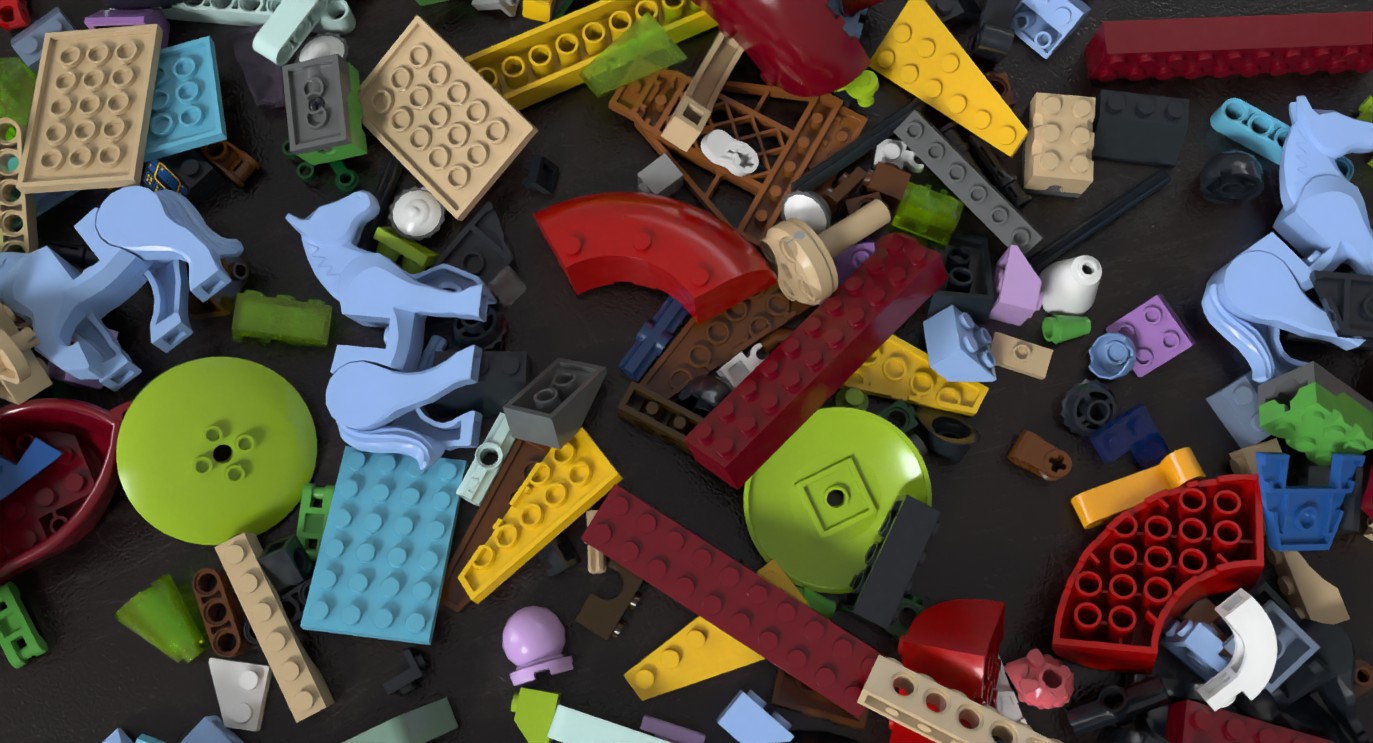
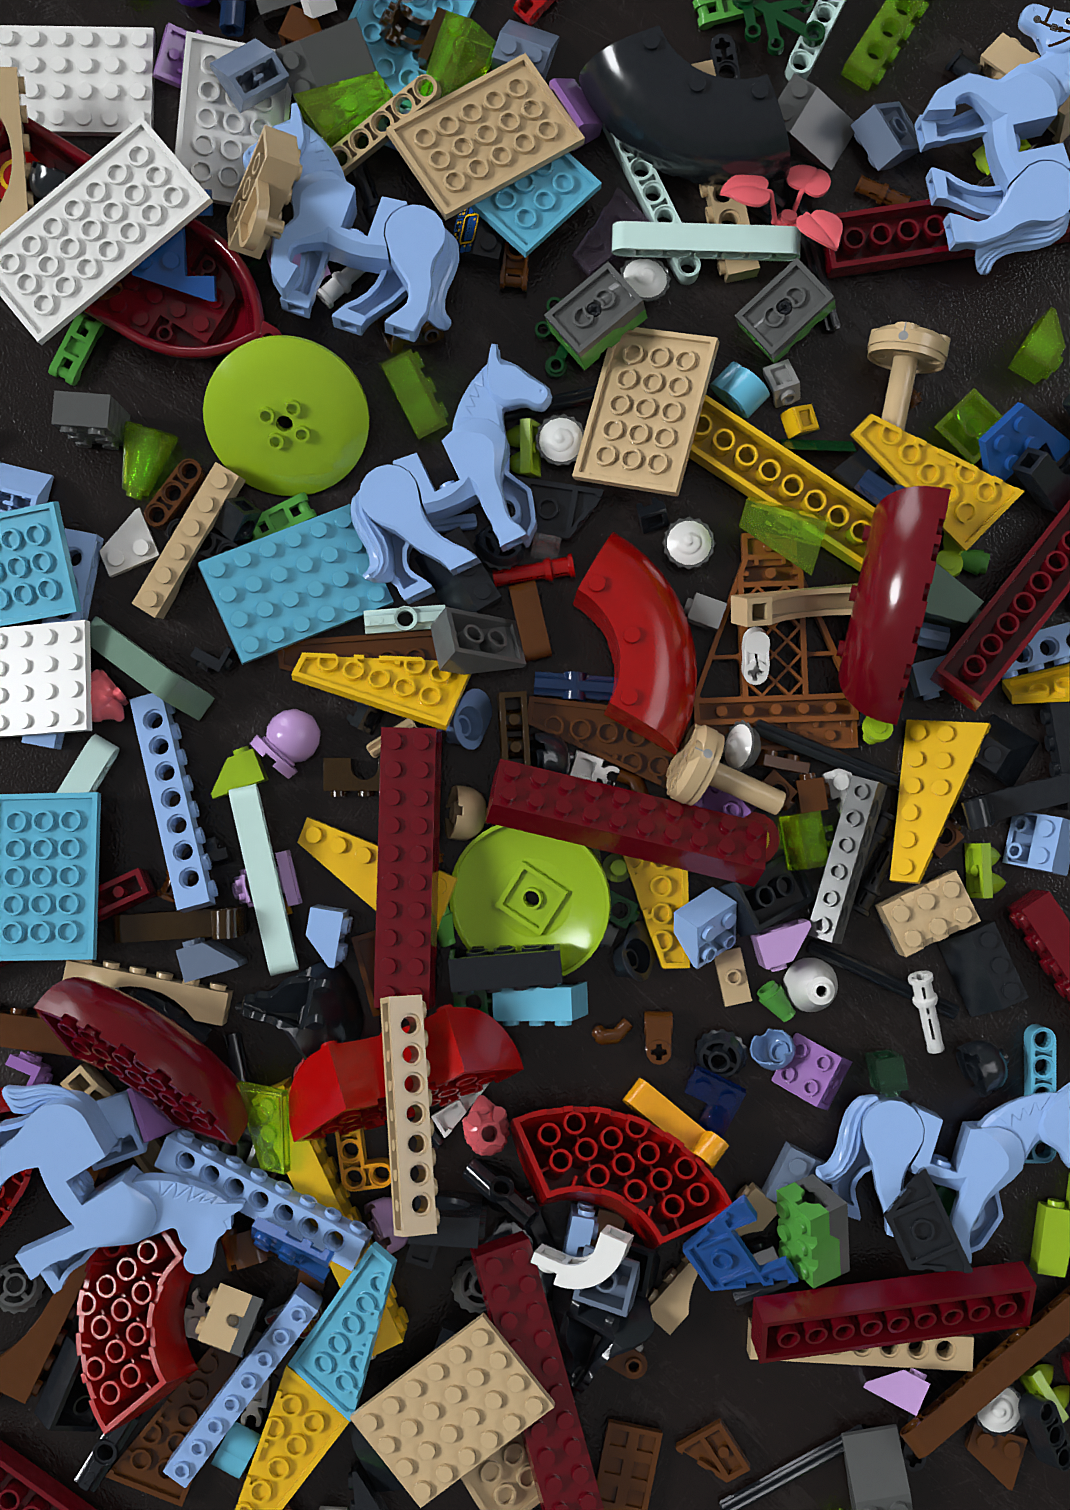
camera: 60 degrees right, 10 degrees up
(84, 650) = (89, 419): none -> dark grey brick
(134, 328) = (338, 285): none -> white pin
(477, 29) = (740, 389): none -> medium azure piece
(528, 299) = (547, 569): none -> red pin
(566, 341) = (530, 621): none -> reddish brown beam
(587, 156) = (689, 542): none -> white piece
(626, 454) = (470, 720): none -> medium blue piece
(714, 511) = (466, 813): none -> tan cylinder
(947, 552) = (540, 1004): none -> medium azure wedge
(1014, 501) = (611, 1036): none -> reddish brown arm
(1039, 77) = (979, 875): none -> lime tile
(1142, 191) = (926, 1002): none -> white pin
(1192, 263) = (887, 1072): none -> clear green brick

